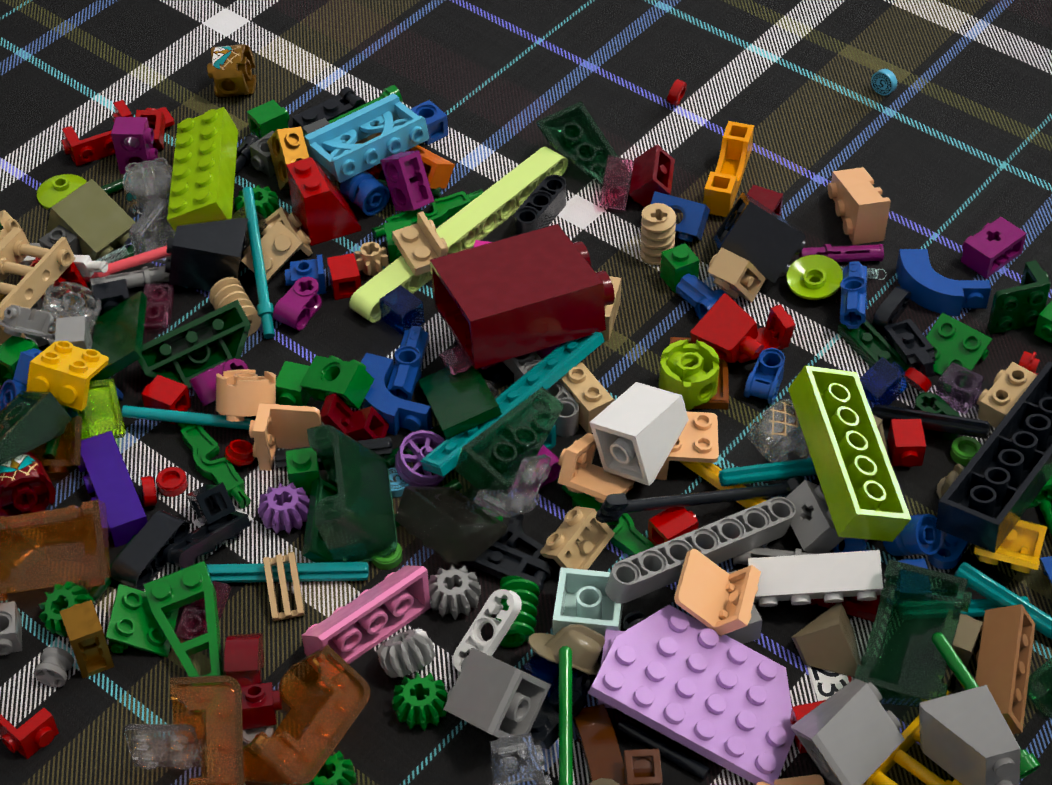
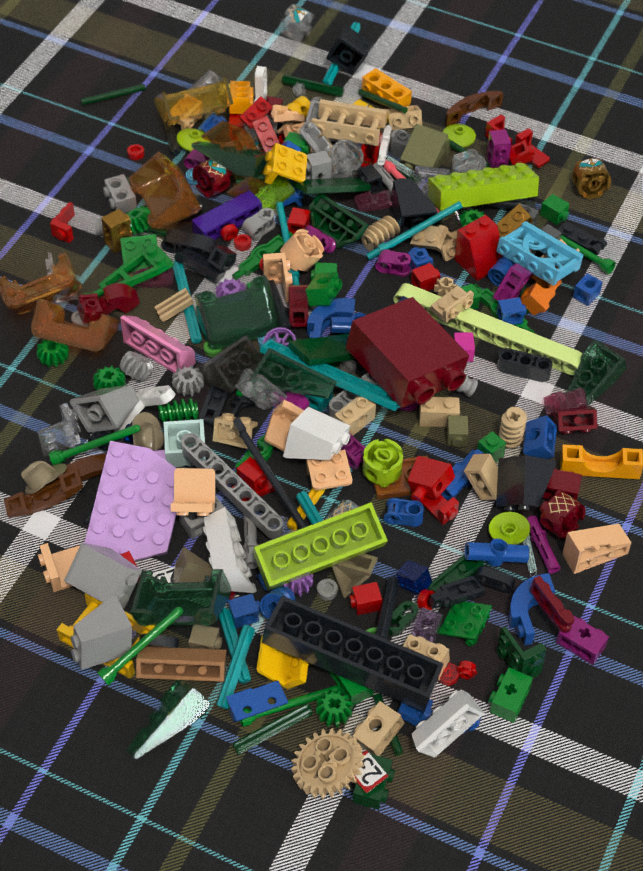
camera: 75 degrees right, 5 degrees up
(21, 177) = (474, 102): none -> reddish brown slope
(147, 446) = (259, 224): none -> light grey piece
(448, 195) = (511, 310): none -> blue brick
(638, 296) = (457, 430): none -> olive brick
(811, 215) = (561, 514): none -> dark red brick
(957, 250) = (551, 605): none -> dark red hinge

